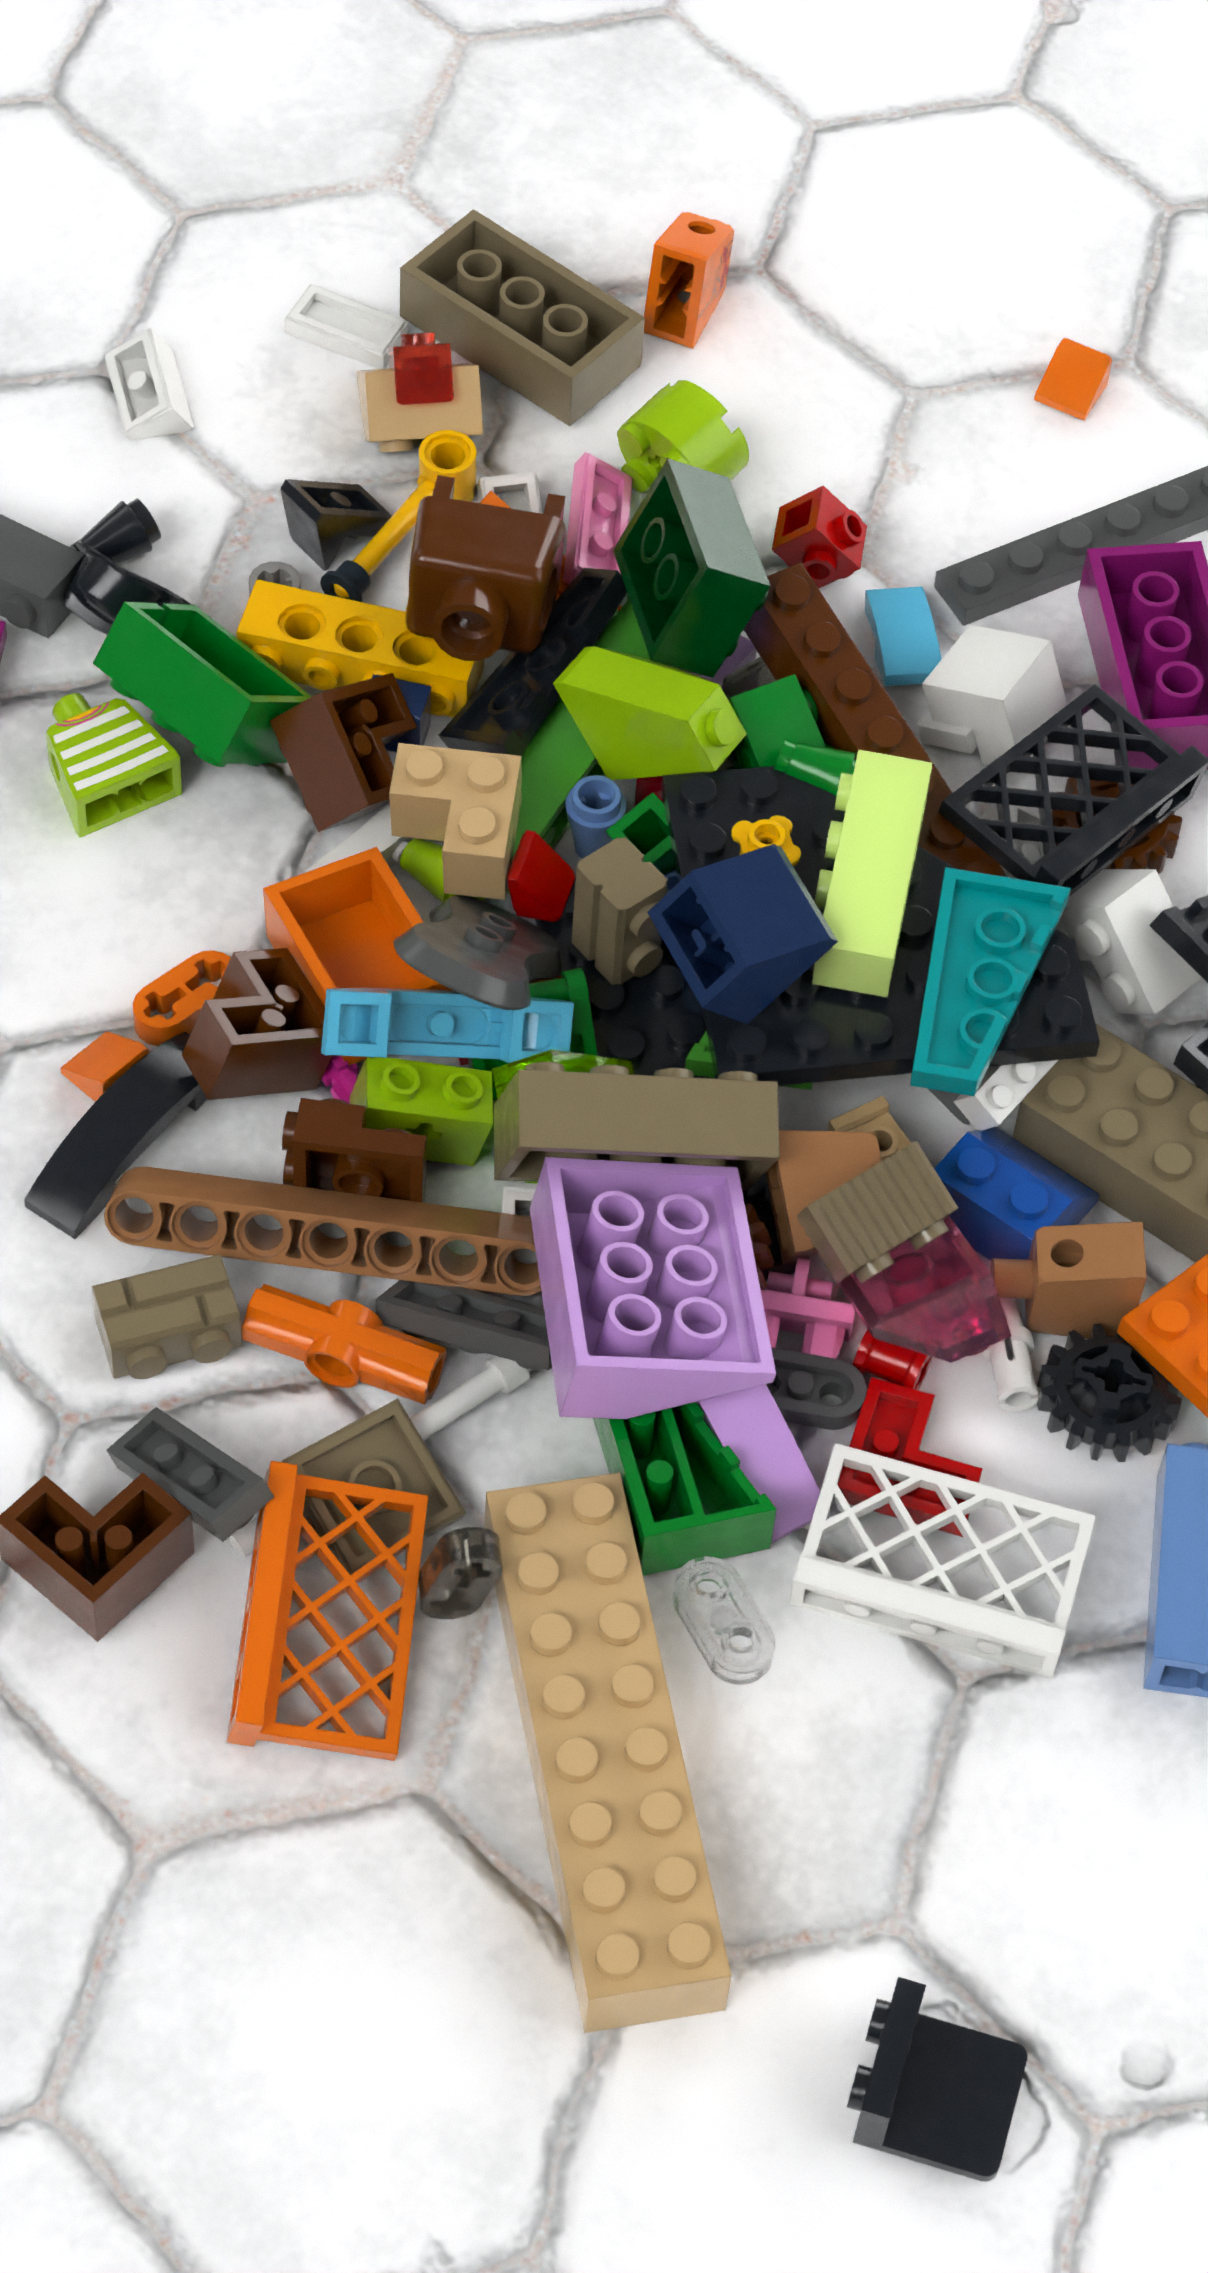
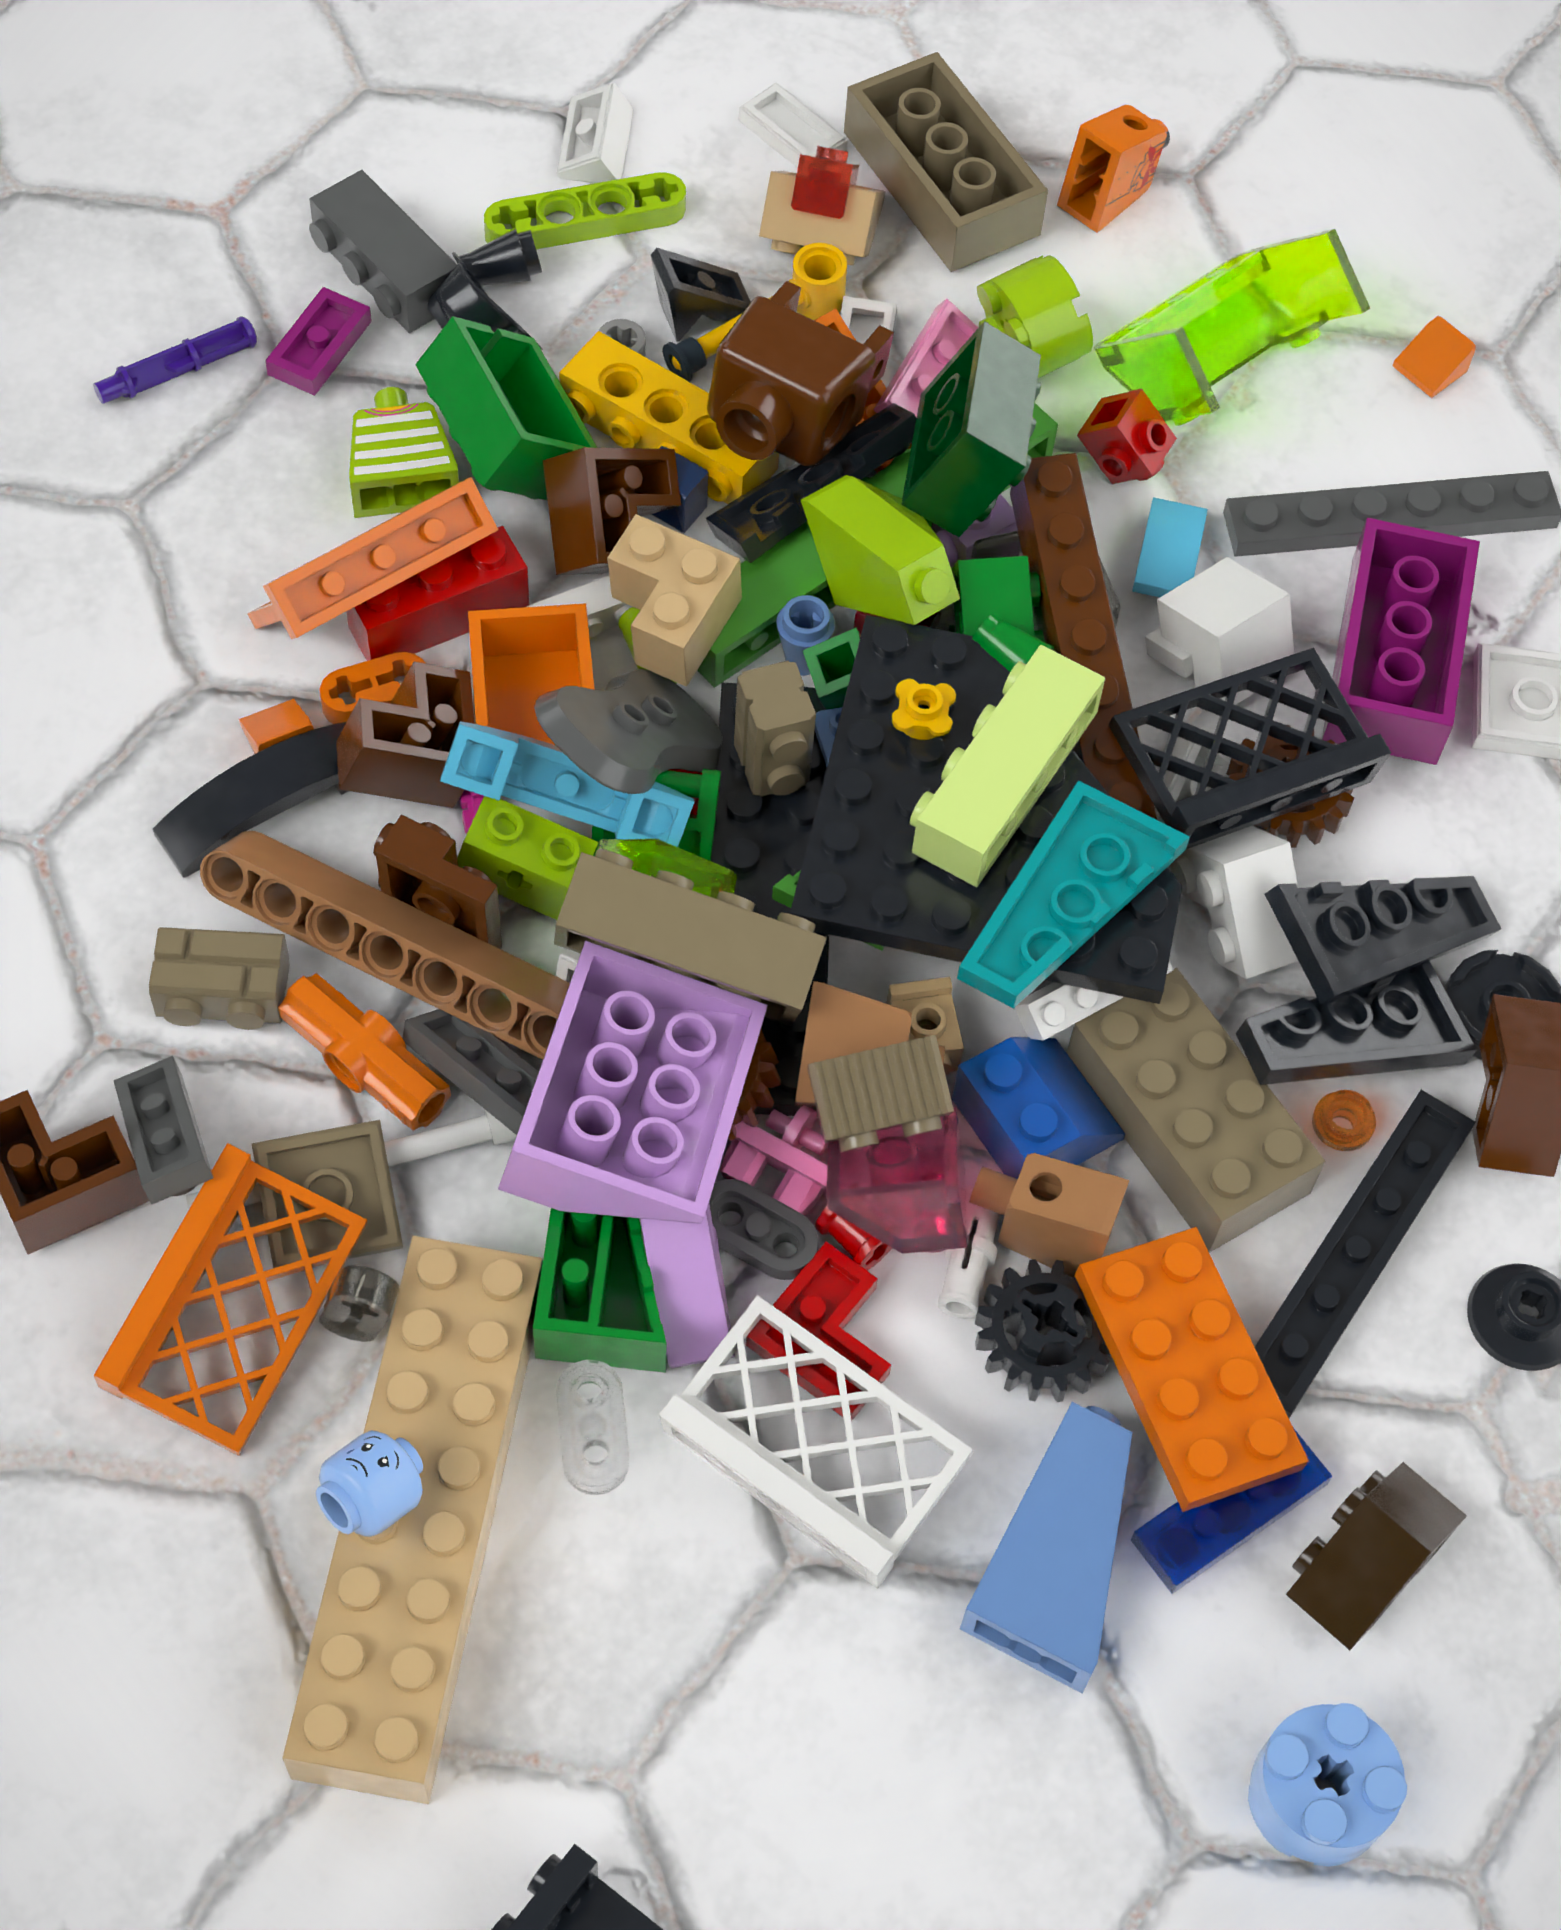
camera: 20 degrees right, 5 degrees up
(148, 869) = (376, 560): none -> orange fence
(210, 887) = (437, 600): none -> red brick
(243, 427) = (583, 205): none -> lime beam
(539, 880) = (716, 674): red slope -> none
(568, 1719) = (370, 1484): none -> light blue head
(742, 931) = (852, 784): dark blue slope -> none
(866, 392) = (1229, 319): none -> clear neon green windscreen

